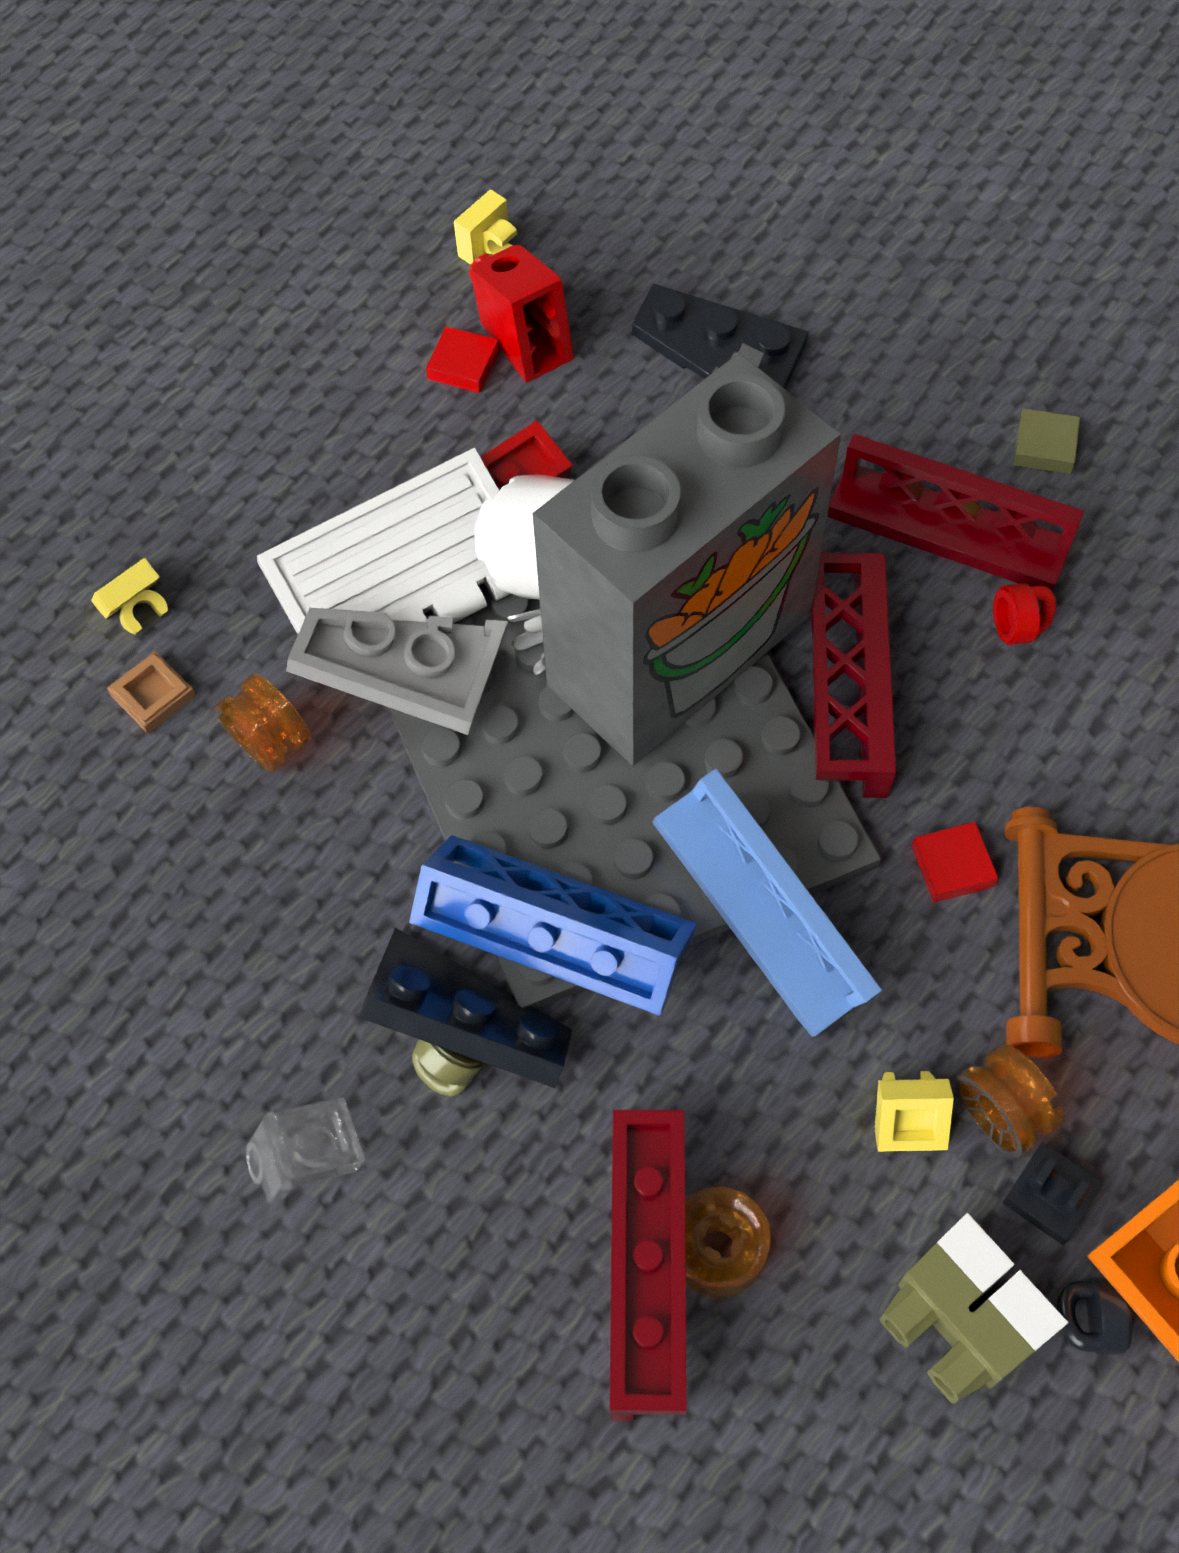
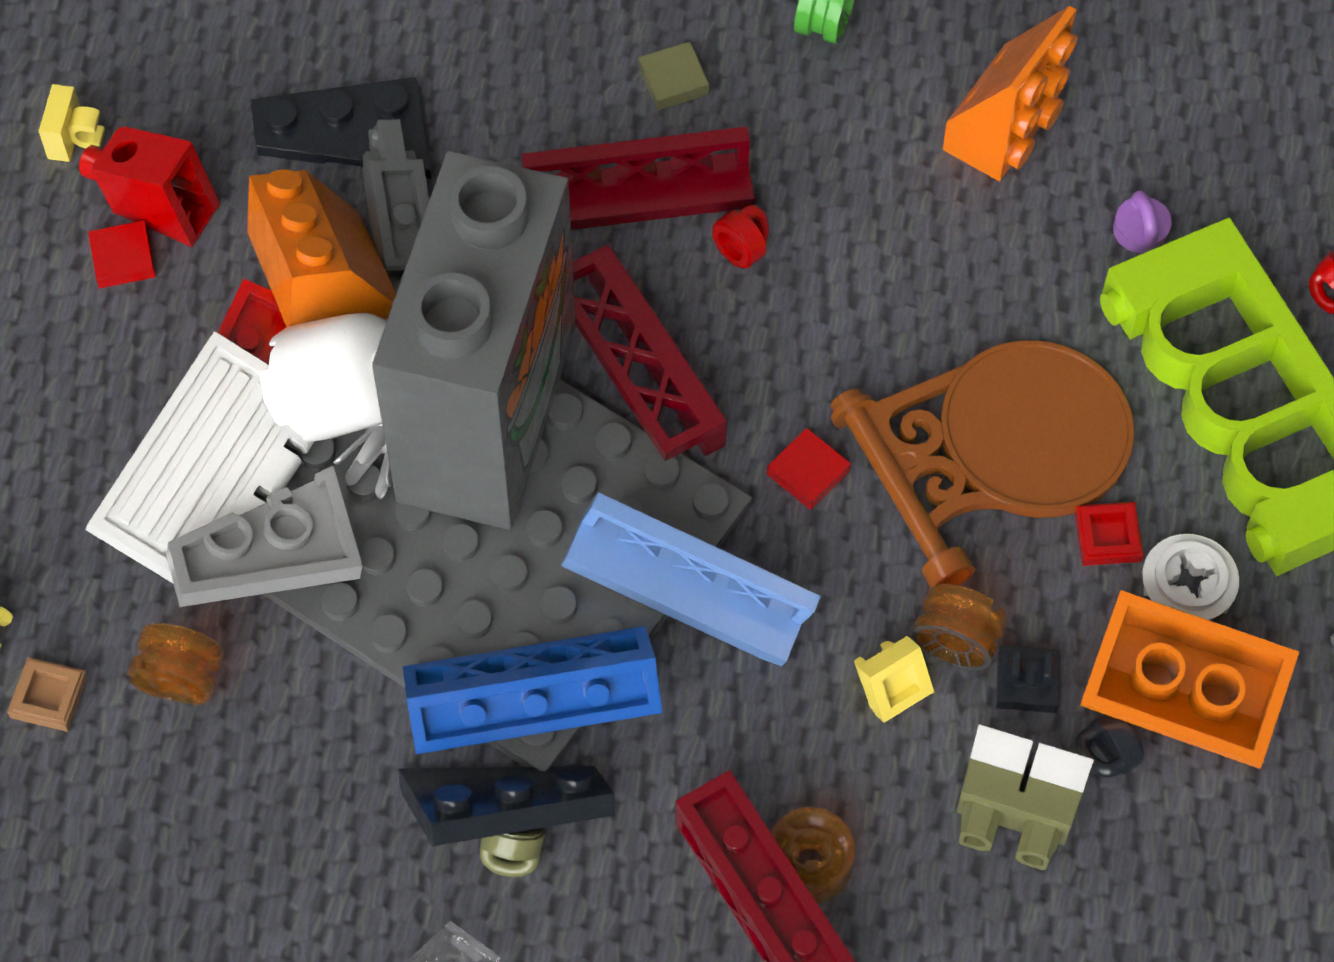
camera: 35 degrees left, 0 degrees up
(611, 402) = (314, 249): none -> orange slope

